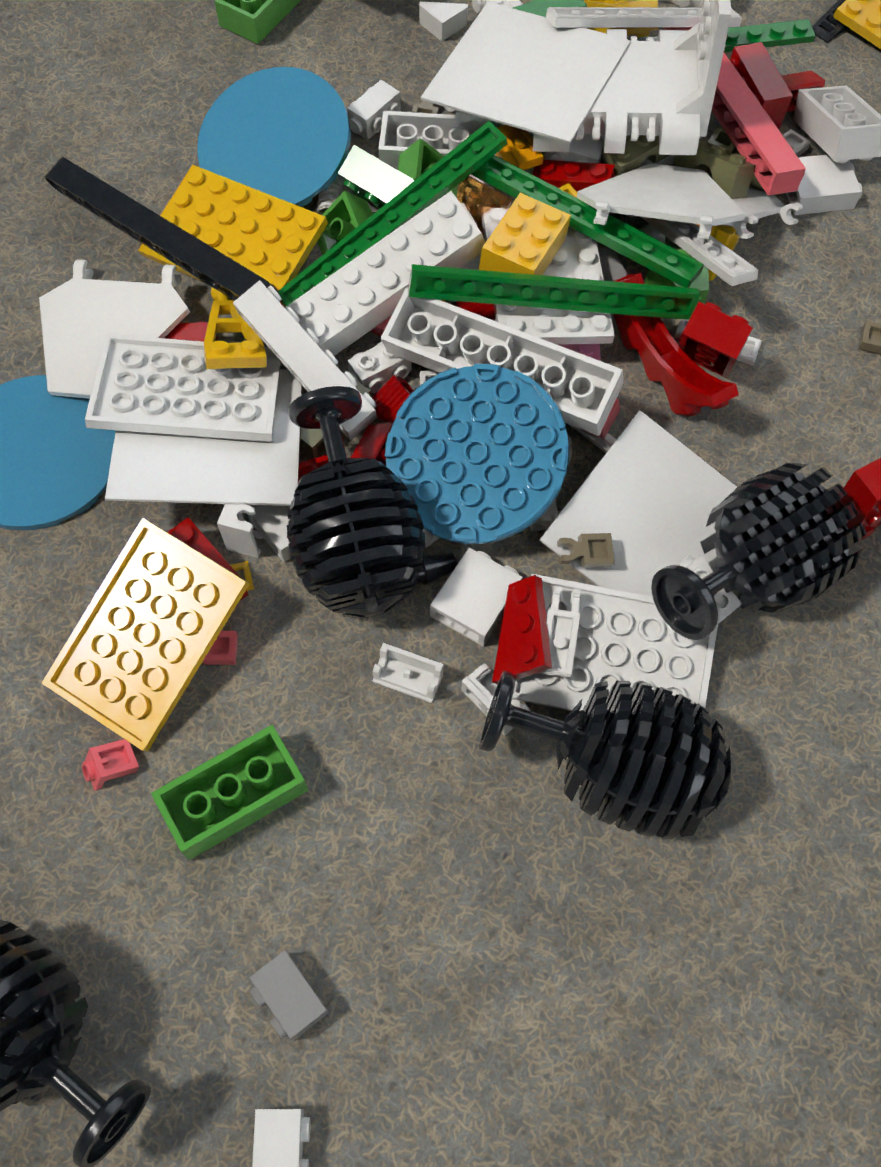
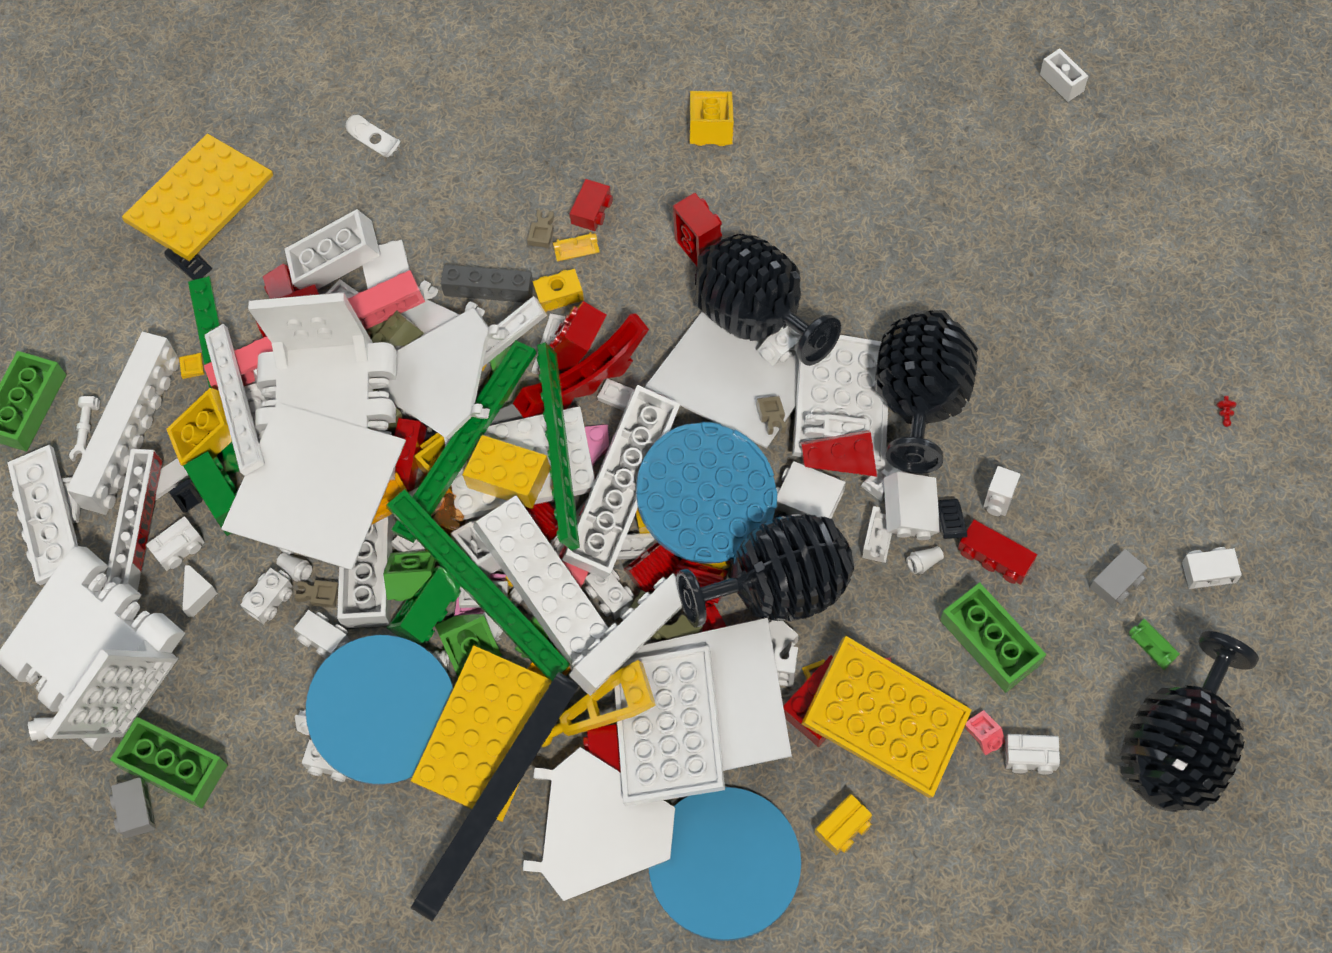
camera: 90 degrees left, 0 degrees up
(36, 575) = (844, 825): none -> yellow brick
(64, 817) = (1032, 753): none -> white brick
(162, 1035) = (1154, 644): none -> bright green hinge
(356, 824) = (997, 552): none -> red brick
(364, 726) = (924, 559): none -> white cone
(420, 66) = (267, 595): none -> white brick
(432, 769) = (949, 517): none -> black slope
(436, 714) = (911, 505): none -> white brick
(442, 840) = (1001, 491): none -> white brick
(641, 397) = (615, 394): none -> white plate
(793, 347) = (570, 292): none -> yellow brick
(802, 276) = (487, 283): none -> dark grey brick
(859, 374) = (576, 247): none -> yellow hinge

